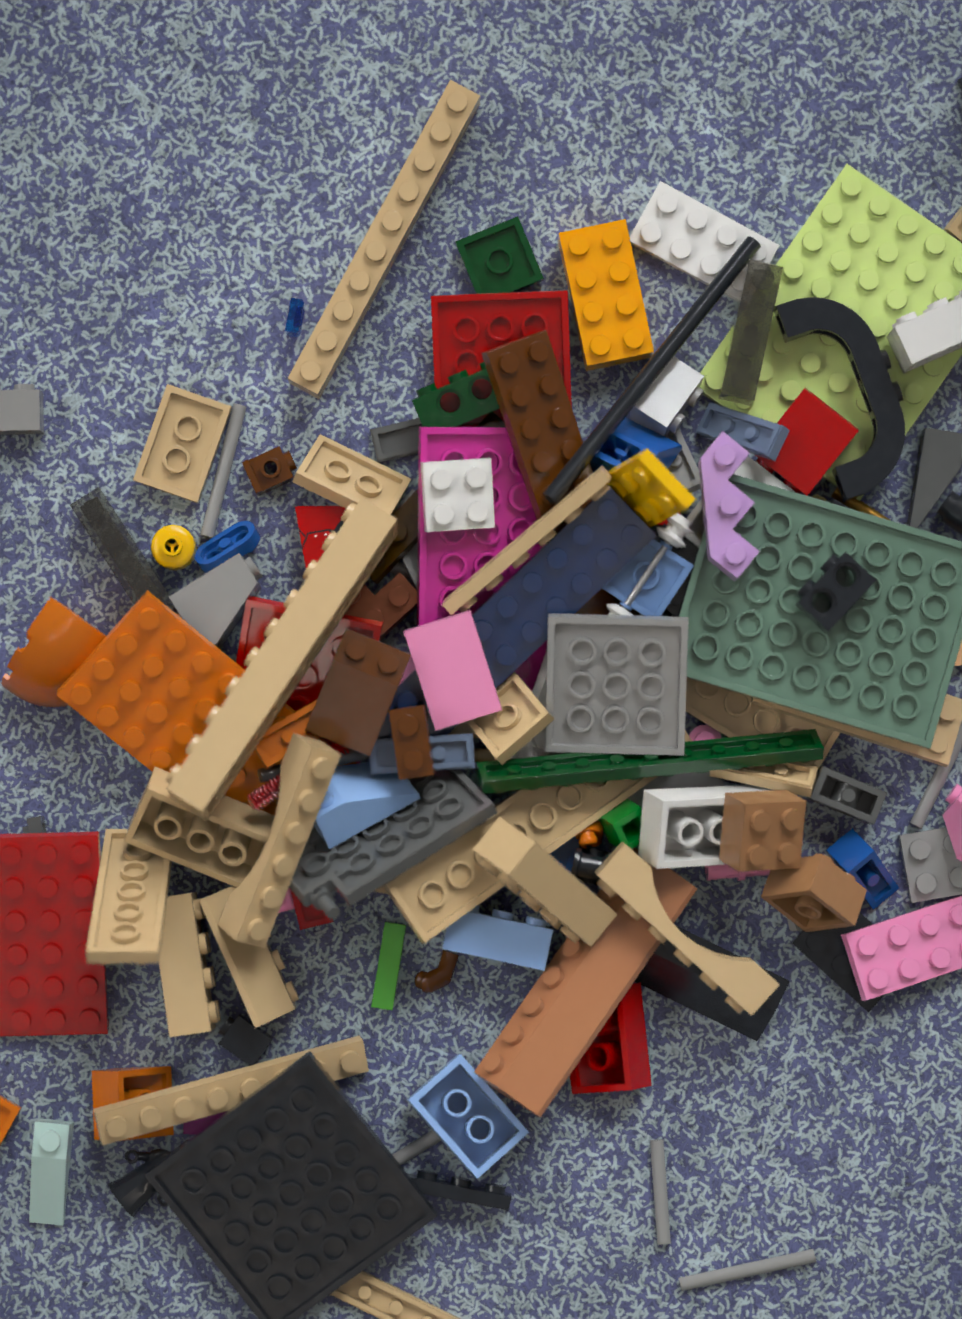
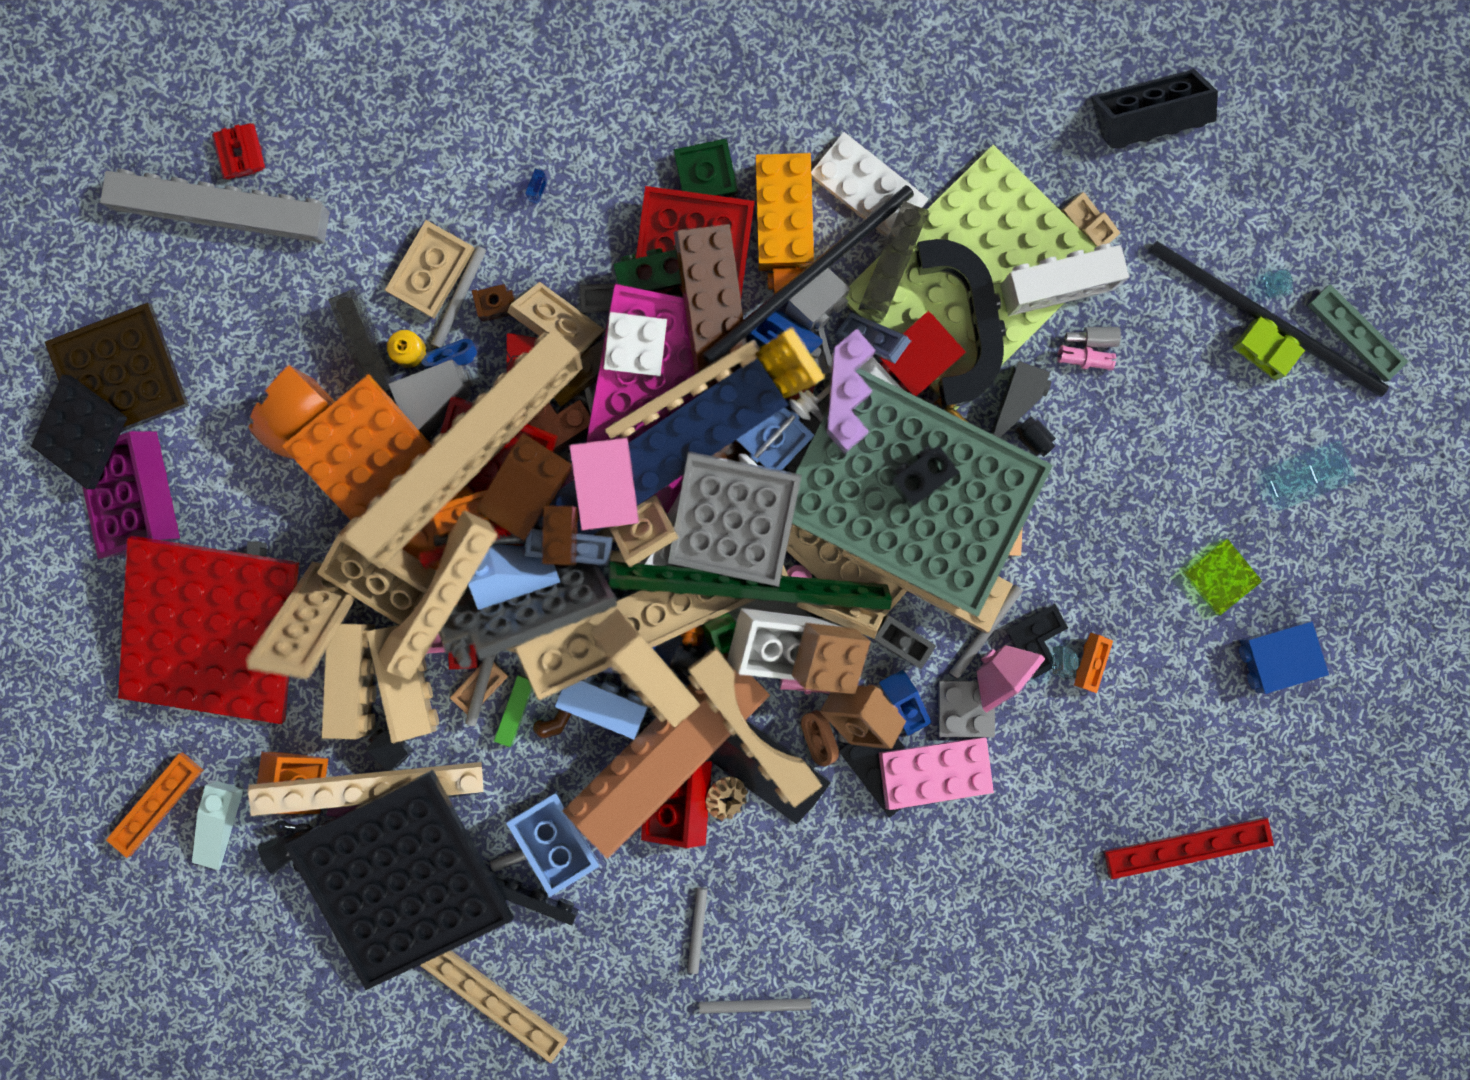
camera: 10 degrees right, 0 degrees up
(339, 944) = (464, 693): none -> light nougat tile
(342, 947) = (479, 690): none -> light grey piece
(384, 239) = (618, 137): tan brick -> none
(619, 376) = (781, 277): none -> orange brick
(662, 1012) = (723, 789): none -> tan gear
(766, 931) = (819, 738): none -> nougat plate

